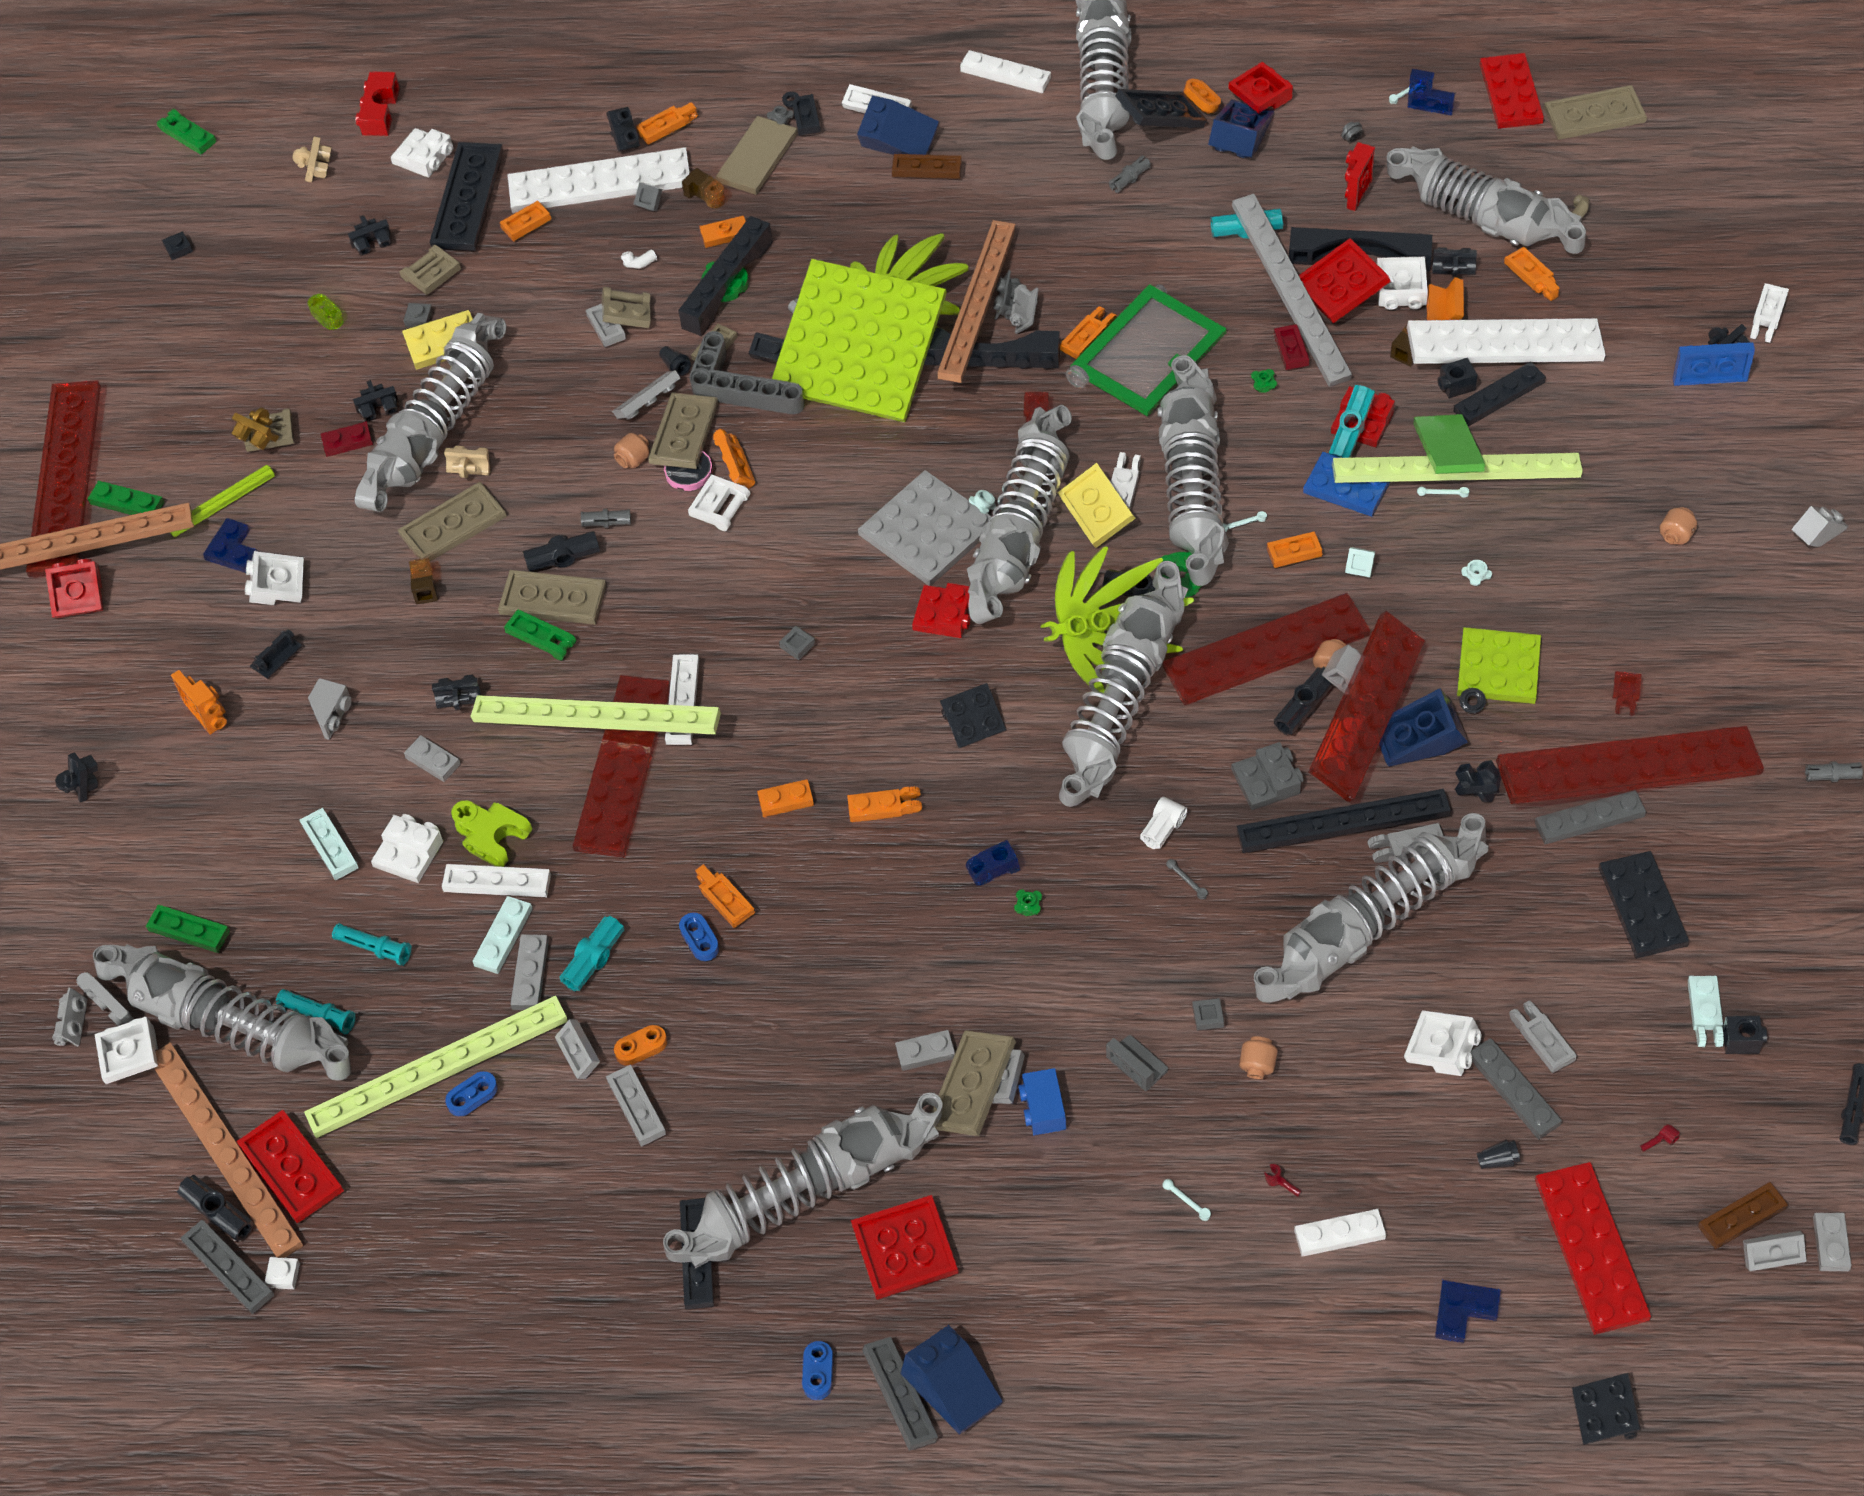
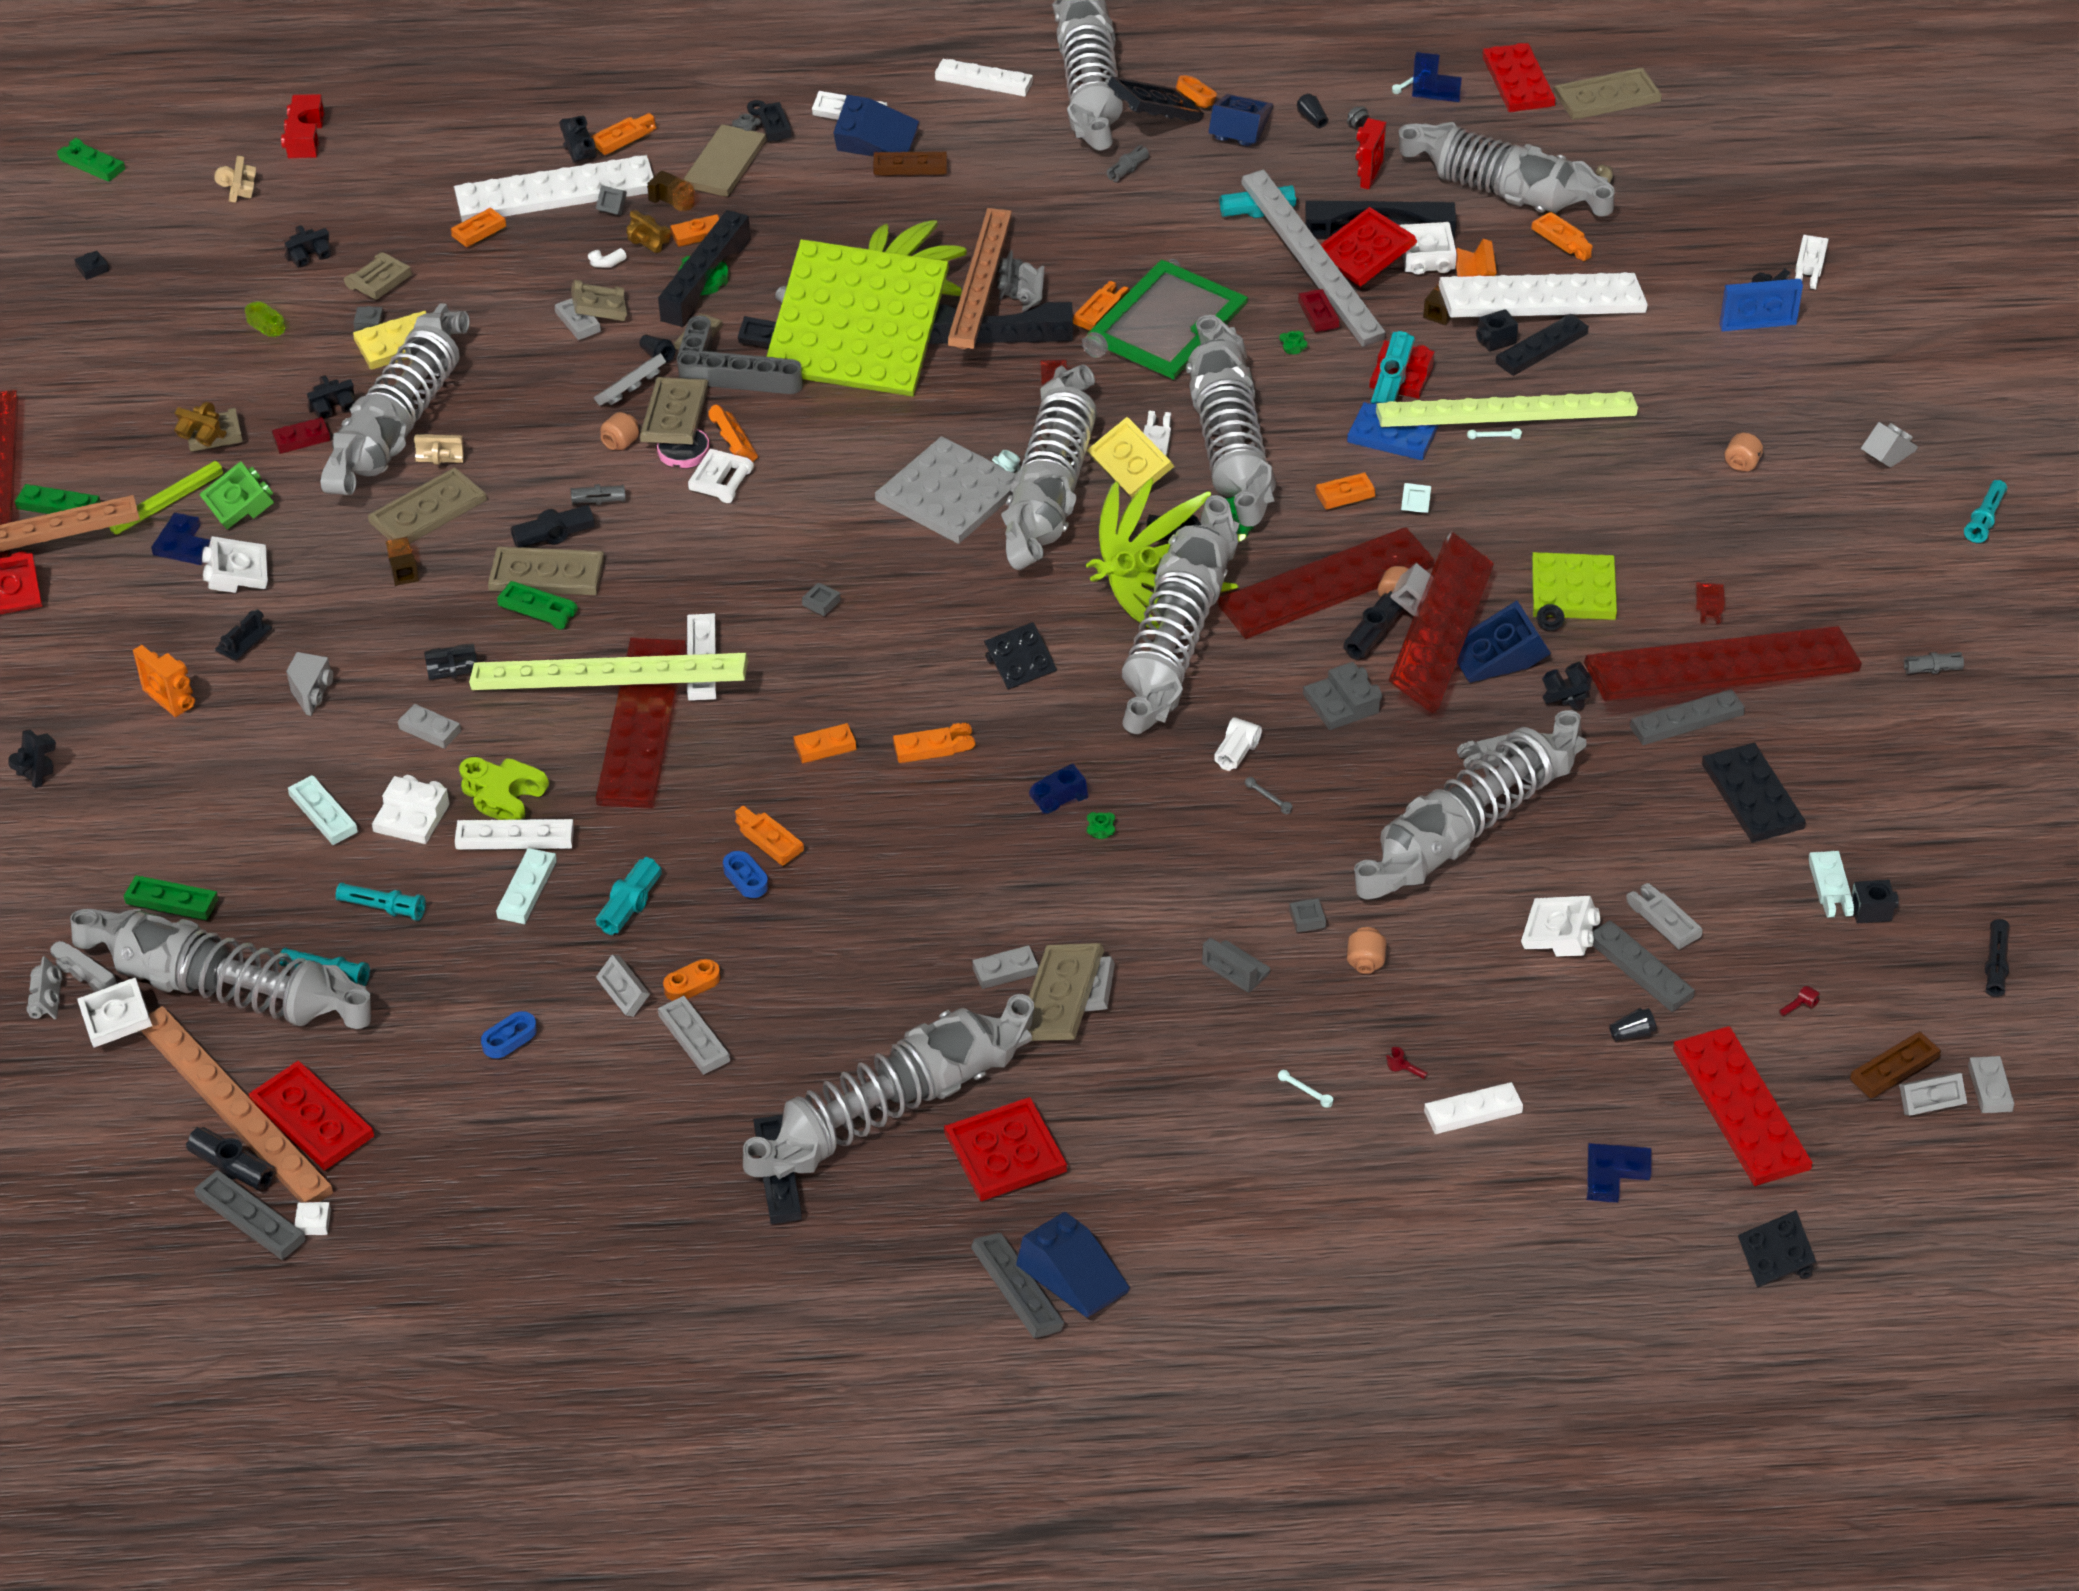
camera: 10 degrees left, 10 degrees down
(283, 503) = (237, 495): none -> bright green plate
(423, 151) = (358, 169): white plate -> none
(435, 1066) = (464, 1012): yellowish green plate -> none
(466, 196) = (411, 207): black plate -> none
(529, 971) = (560, 919): light grey plate -> none
(675, 232) = (646, 231): none -> pearl gold hips
(817, 1368) = (922, 1269): blue plate -> none
(943, 610) = (977, 563): red plate -> none
(1043, 1102) = (1140, 1004): blue brick -> none
(1261, 517) = (1305, 464): light aqua hinge -> none
(1262, 88) = (1259, 80): red plate -> none
(1309, 121) = (1311, 109): none -> black cone
(1343, 820) = (1428, 732): black plate -> none
(1449, 444) = (1496, 386): bright green tile -> none
(1454, 261) = (1480, 227): black hips -> none
(1473, 567) = (1539, 502): light aqua plate -> none

